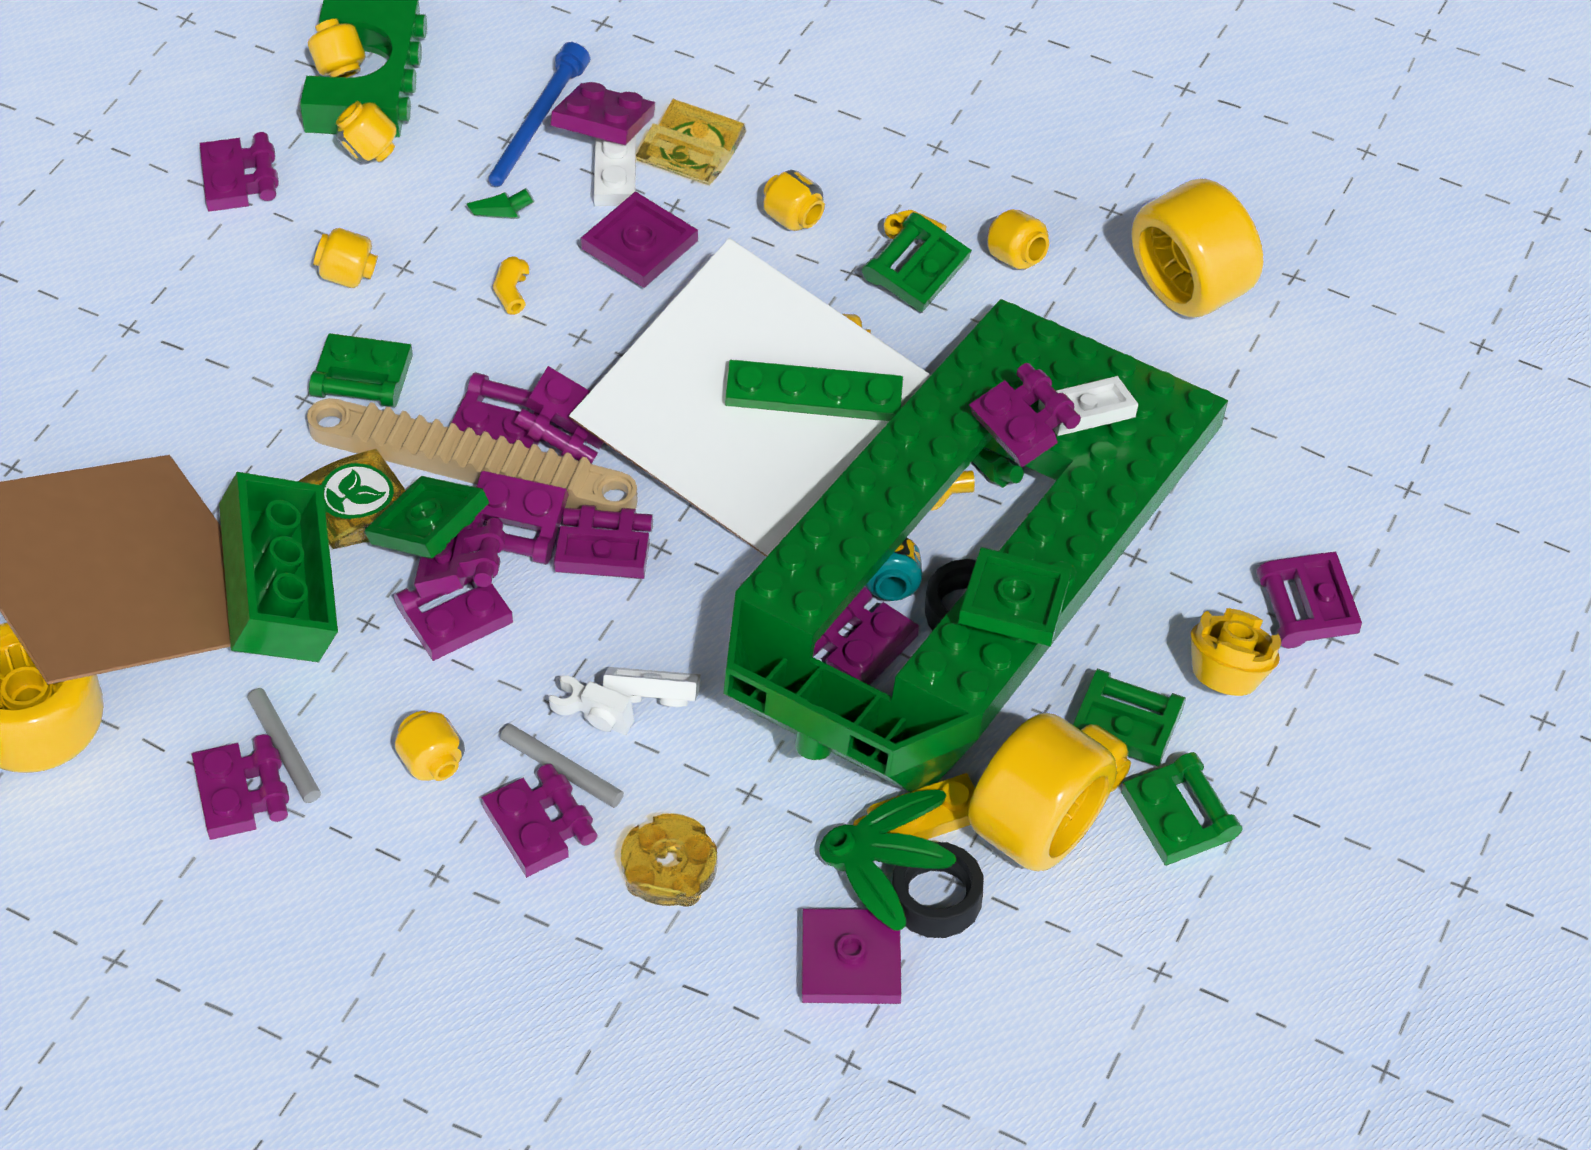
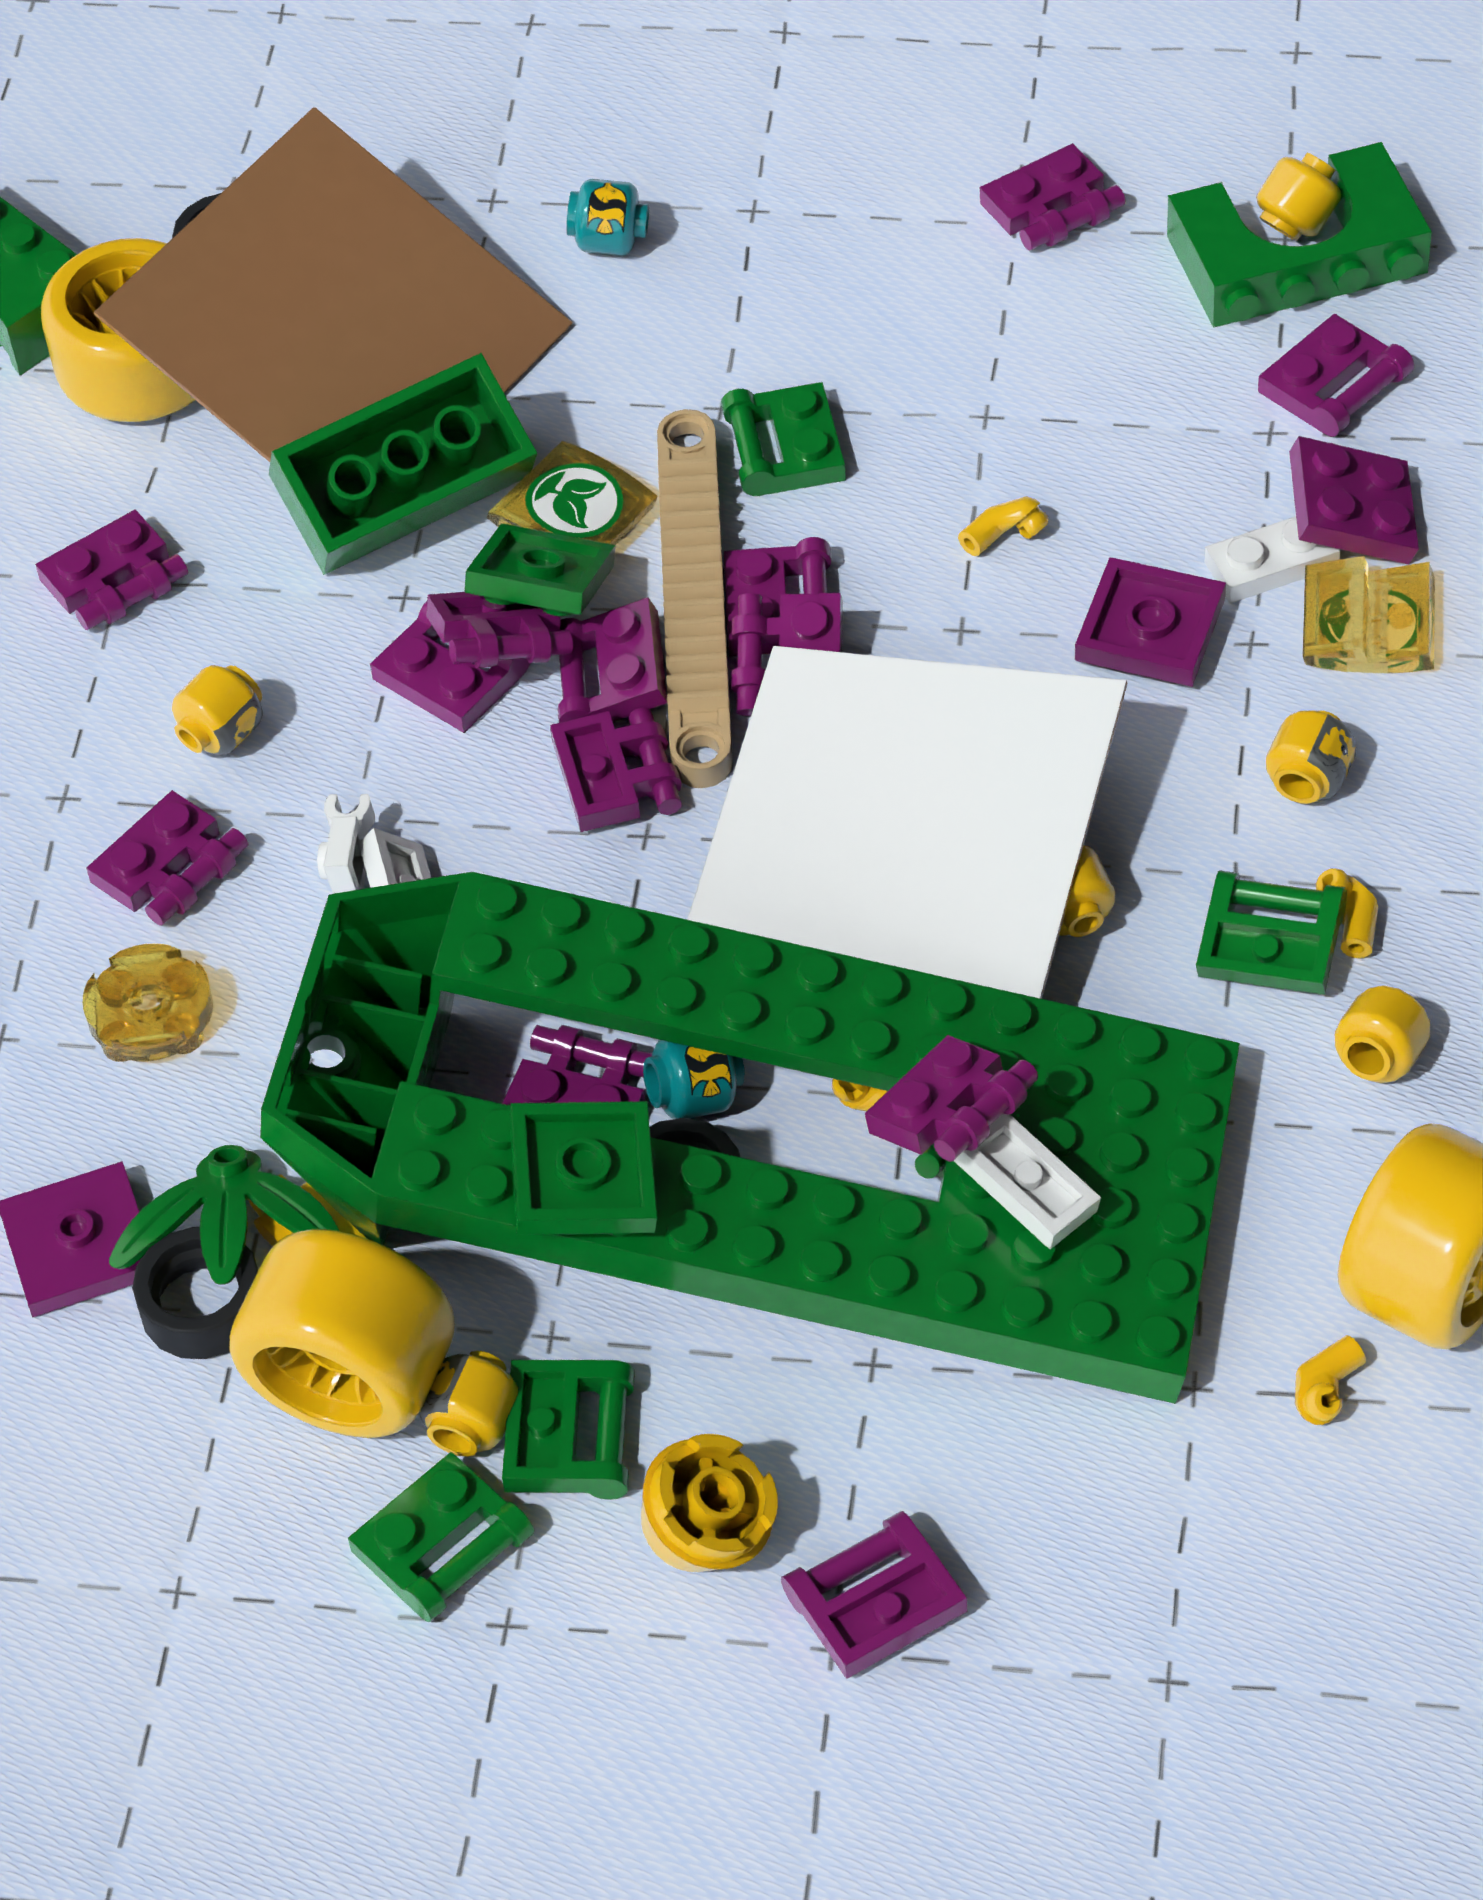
camera: 75 degrees right, 0 degrees up
(97, 397) = (606, 217): none -> teal head
(282, 741) = (186, 588): light grey bar -> none
(345, 257) = (949, 346): yellow head -> none
(366, 132) = (1167, 280): yellow head -> none
(474, 98) = (1326, 362): none -> magenta plate
(502, 205) = (1138, 467): green bar -> none
(570, 62) = (1434, 436): blue piece -> none
(574, 773) = (257, 854): light grey bar -> none
(813, 390) = (935, 877): green plate -> none
(1236, 352) = (1319, 1380): none -> yellow arm

